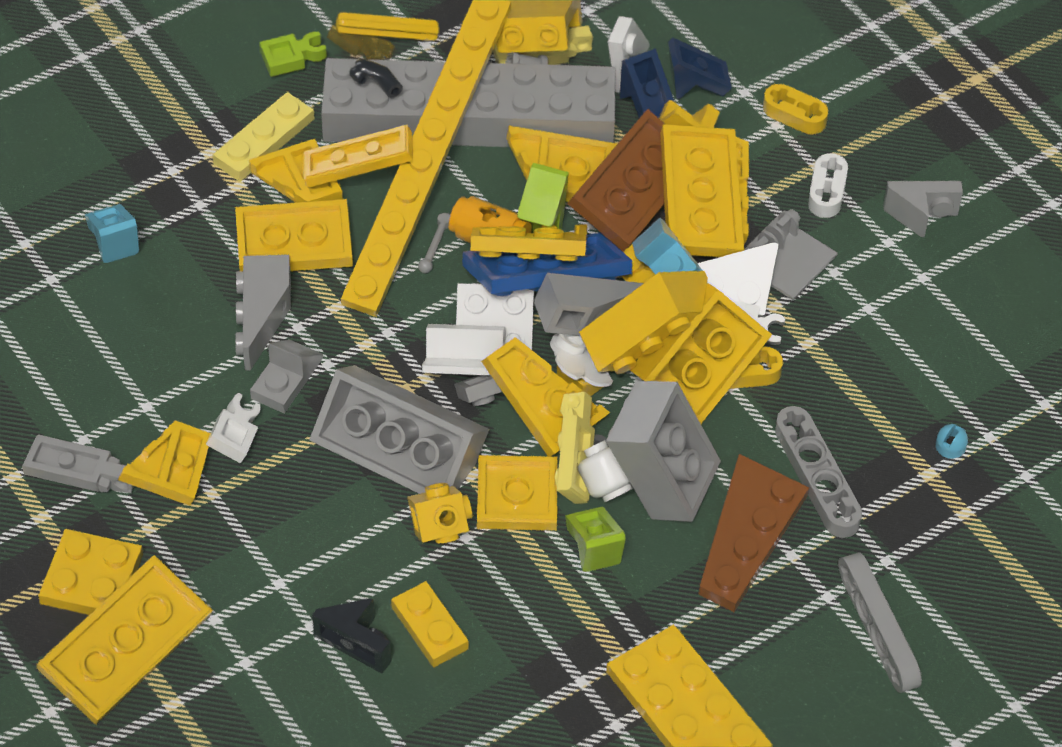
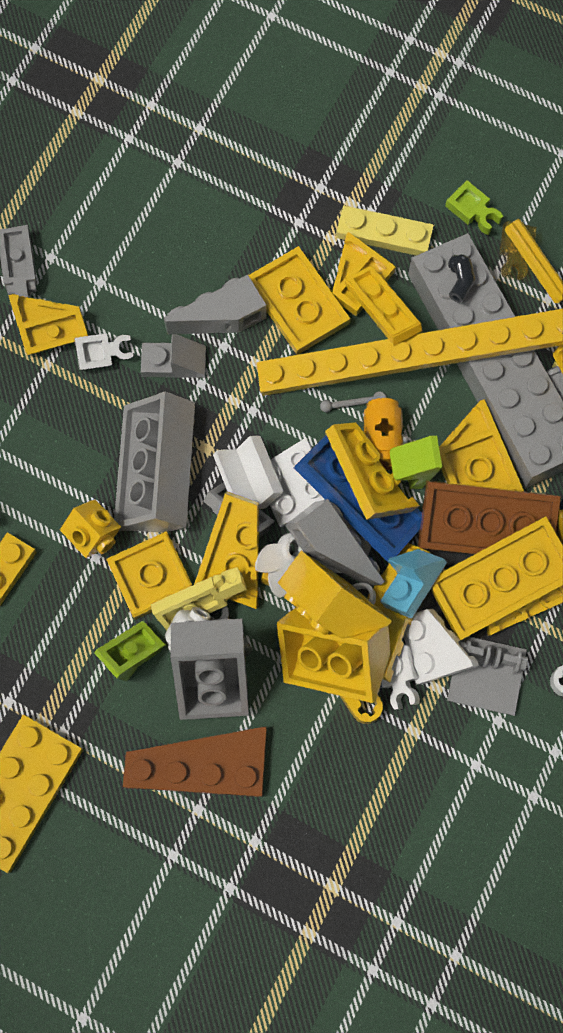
camera: 65 degrees right, 20 degrees up
(114, 232) = (230, 174): medium azure slope -> none
(813, 472) = (287, 798): light grey beam -> none
(879, 622) = (157, 909): light grey beam -> none
(958, 444) = (372, 884): medium azure hinge -> none

